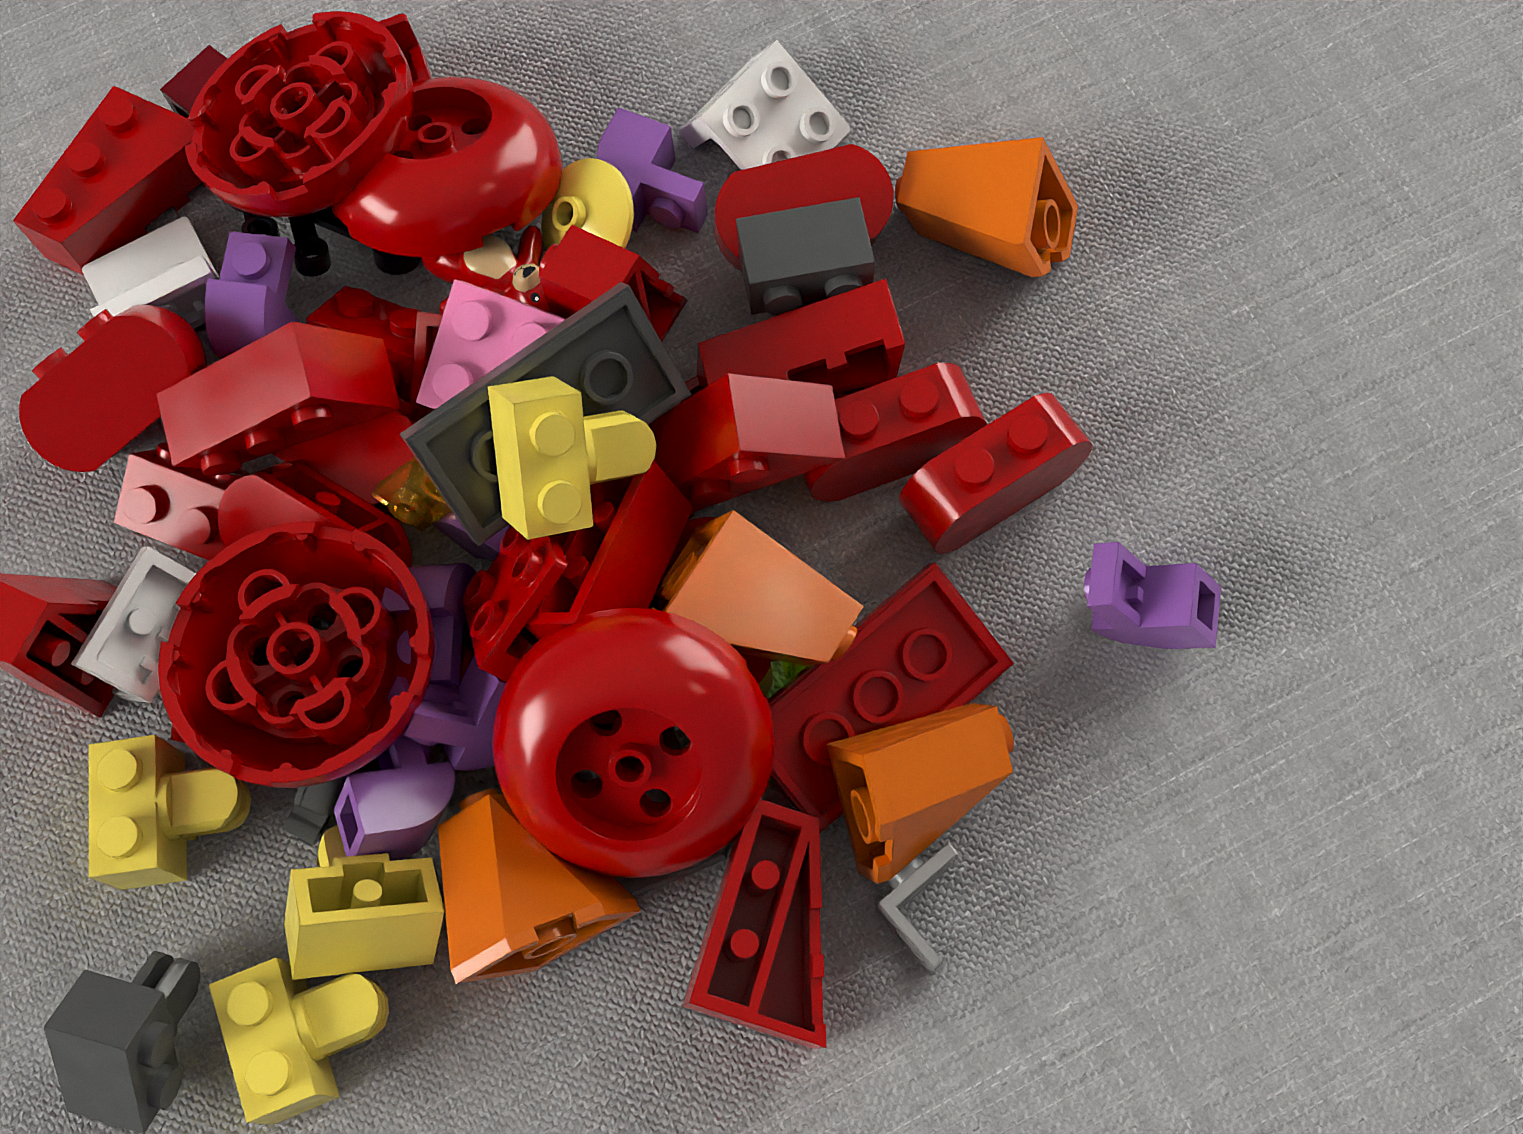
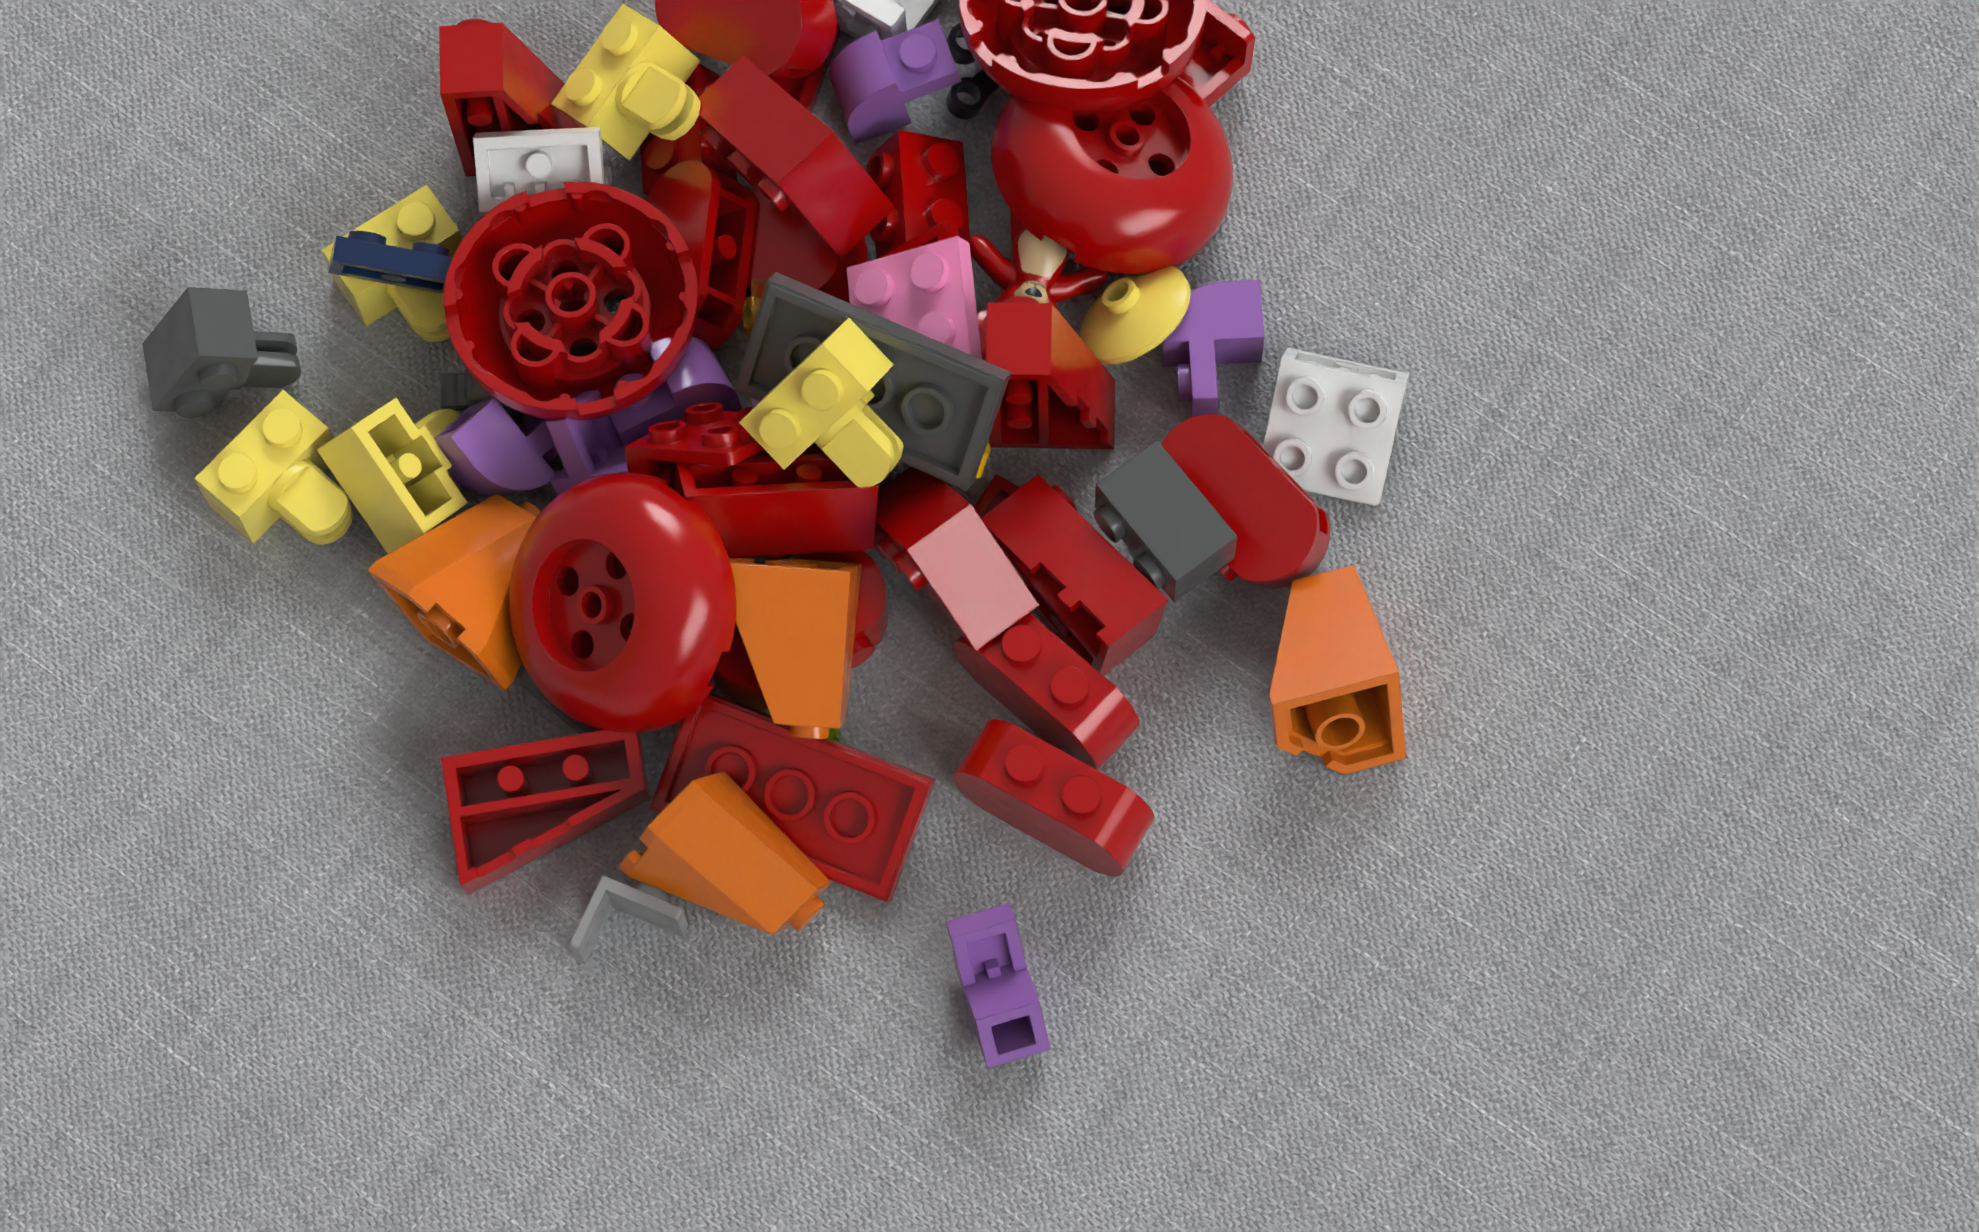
camera: 60 degrees right, 0 degrees up
(115, 504) = (632, 85): none -> light yellow brick
(132, 826) = (369, 258): none -> dark blue plate

